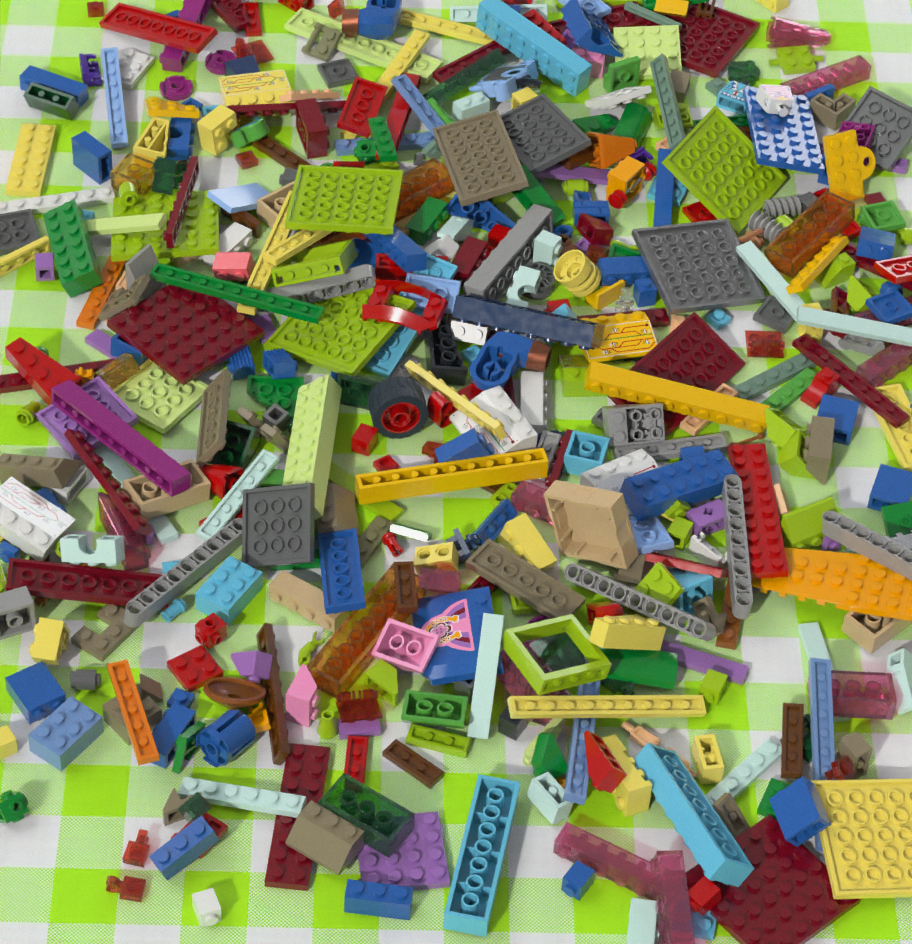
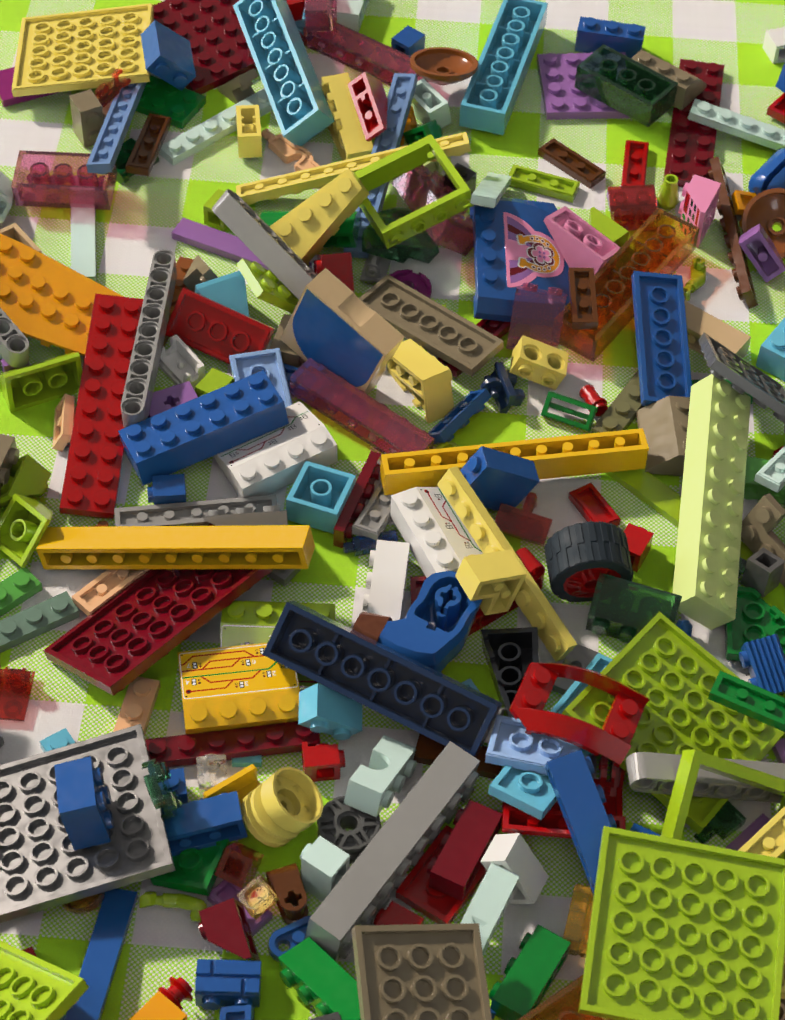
camera: 175 degrees left, 5 degrees up
(434, 709) = (550, 181): bright green slope -> none
(464, 370) = (493, 578): none -> light yellow brick
(545, 808) = (443, 65): none -> dark orange dish
(581, 241) = (257, 897): none -> clear yellow tile
(648, 260) = (160, 789): none -> clear green plate
(691, 247) = (83, 803): none -> blue brick

